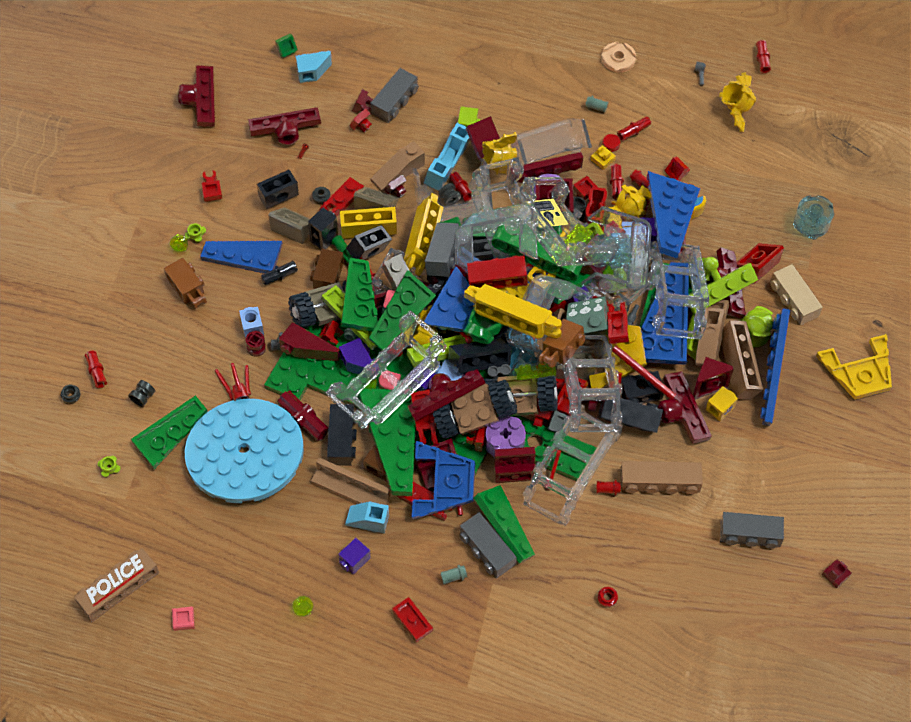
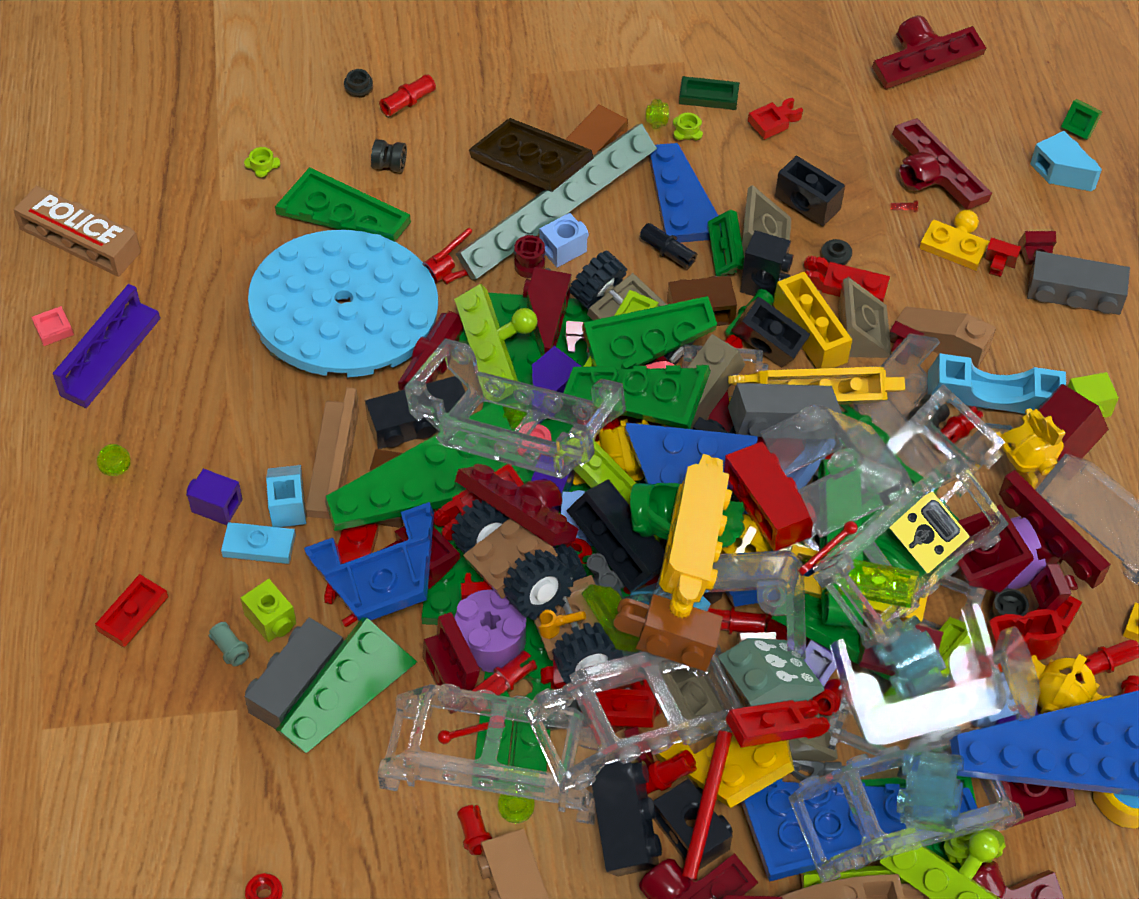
camera: 70 degrees right, 5 degrees down
(173, 212) = (709, 93): none -> dark green tile
(182, 316) = (531, 154): none -> dark brown tile
(219, 590) = (106, 348): none -> dark purple fence
(224, 315) = (549, 206): none -> plate
(296, 236) = (729, 241): none -> green tile
(309, 381) = (485, 334): none -> lime plate
(339, 138) = (956, 242): none -> yellow plate
(392, 543) = (258, 543): none -> medium azure plate
(442, 547) = (268, 610): none -> lime brick
(524, 398) = (551, 623): none -> light orange hand
(533, 441) = (508, 675): none -> red axle
(549, 272) = (850, 528): none -> red hinge
(580, 182) = (1052, 587): none -> dark red tile
(604, 466) = (515, 808): none -> clear neon green plate
(646, 214) = (1018, 675): none -> clear tile
(691, 266) = (931, 791): none -> clear light blue brick

